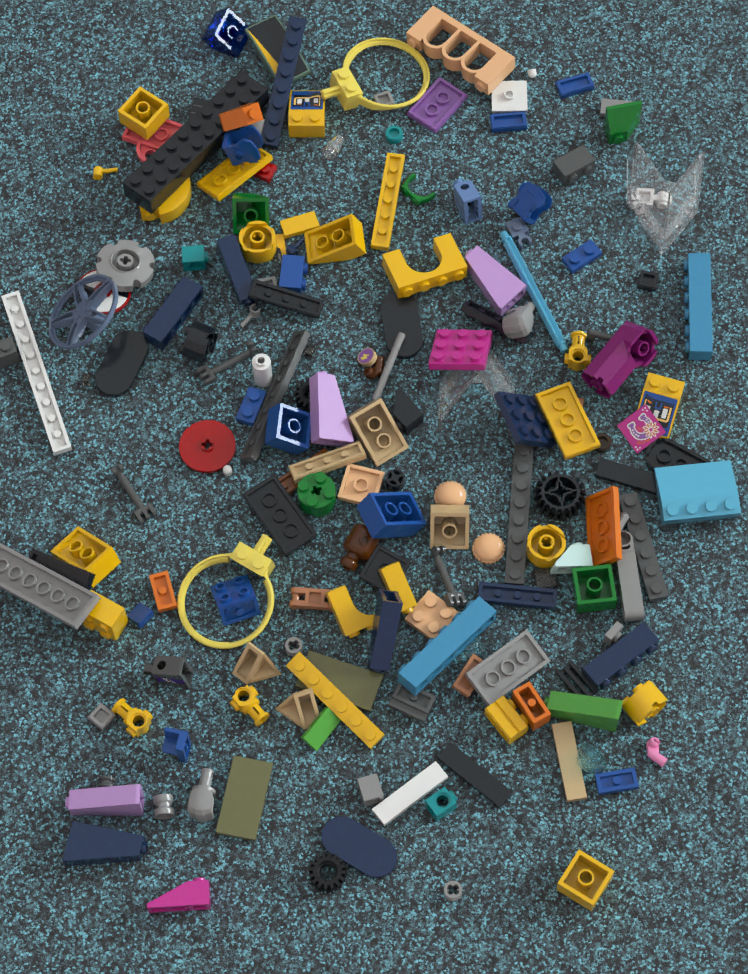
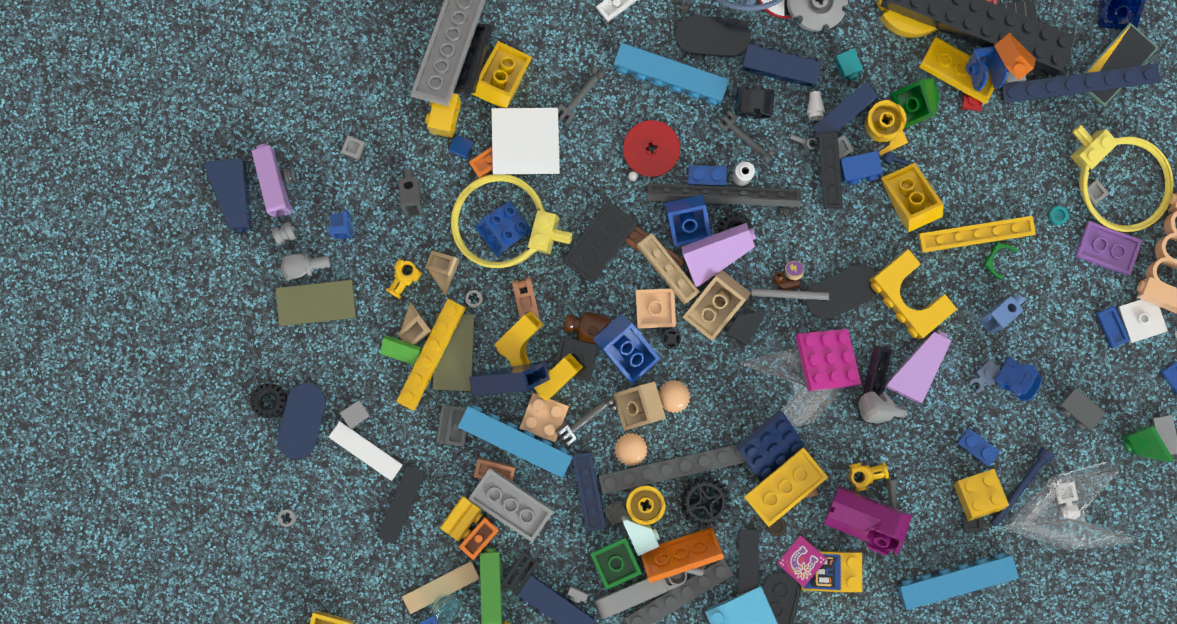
camera: 70 degrees right, 20 degrees up
(131, 716) = (360, 174): yellow connector -> none
(143, 408) = (670, 74): none -> dark azure brick
(157, 552) = (525, 141): none -> white sticker
(186, 897) = (209, 286): dark pink slope -> none
(223, 296) = (815, 106): none -> white cone
(299, 224) = (922, 155): yellow tile -> none
(306, 114) = (1053, 119): yellow slope -> none
(316, 494) = (642, 269): green brick -> none
(332, 148) = (1019, 158): clear cone -> none
(437, 811) = (353, 482): teal brick -> none
(534, 292) = (921, 411): medium azure piece -> none
(606, 205) = (1043, 457): none -> dark blue piece
(625, 263) = (981, 495): none -> yellow brick

